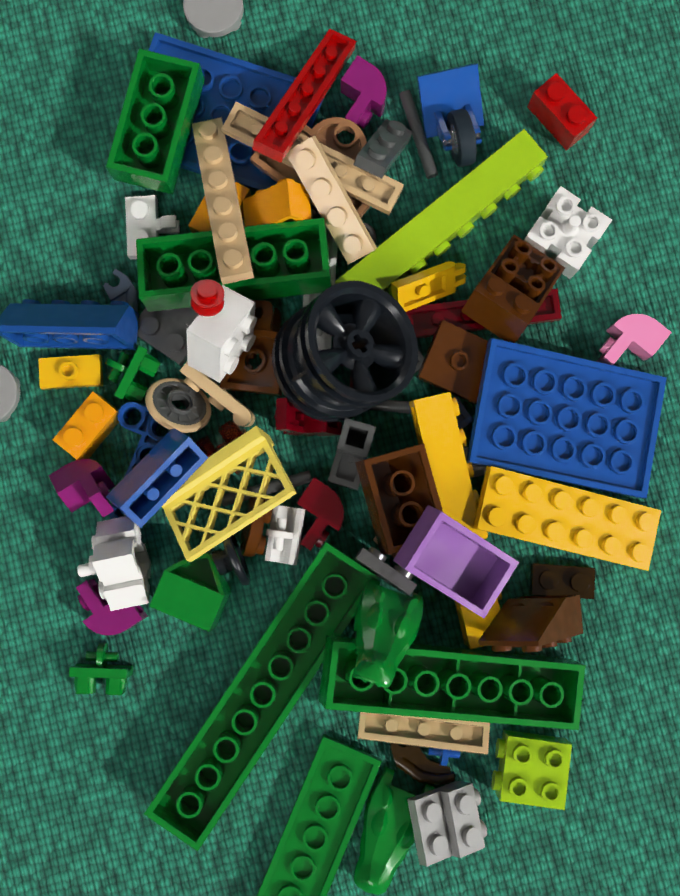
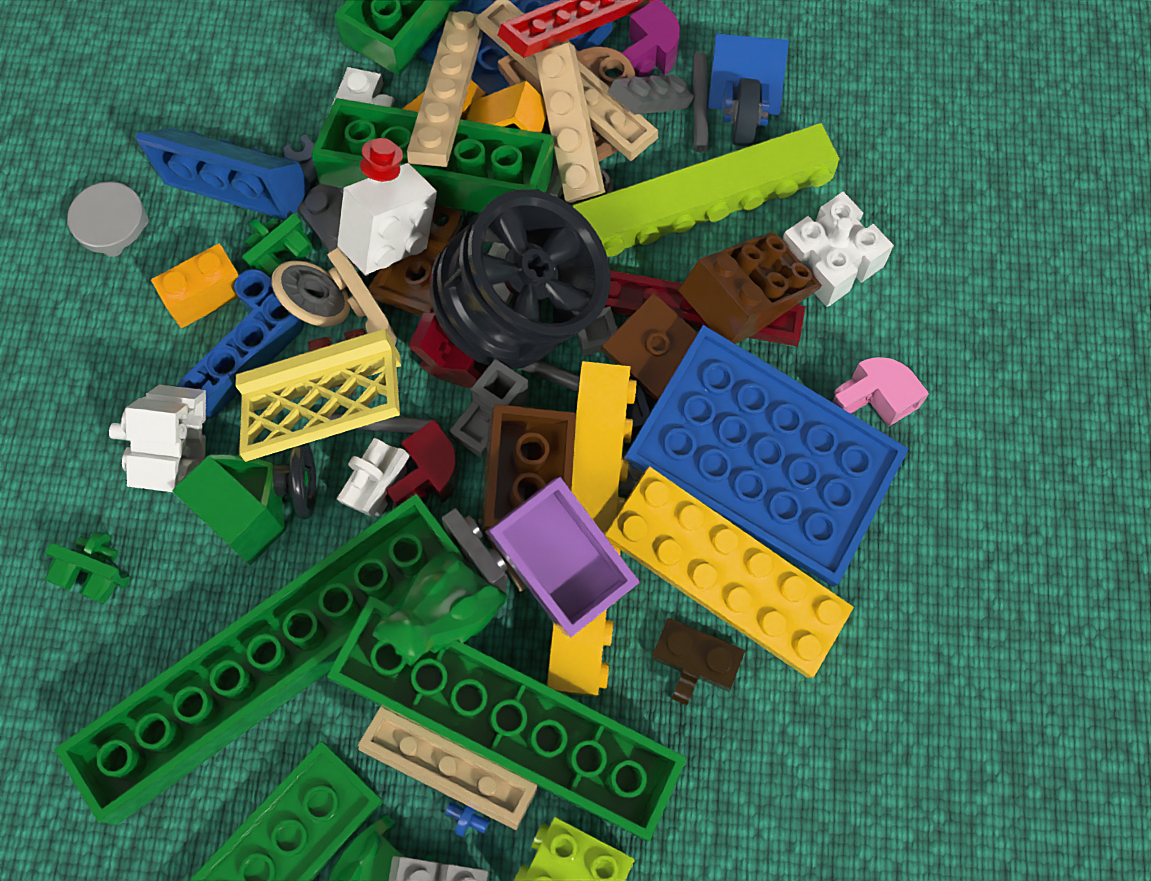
camera: 20 degrees right, 15 degrees down
(70, 372) = (208, 225): yellow plate -> none
(81, 483) = (163, 342): magenta brick -> none
(103, 619) = (130, 507): magenta brick -> none
(157, 477) = (247, 351): blue brick -> none
(251, 537) = (332, 465): reddish brown tile -> none
(415, 764) = (425, 824): dark brown piece -> none
(428, 285) = (650, 254): yellow hinge -> none
(534, 623) = (641, 680): reddish brown slope -> none
(561, 111) = (873, 122): red brick -> none

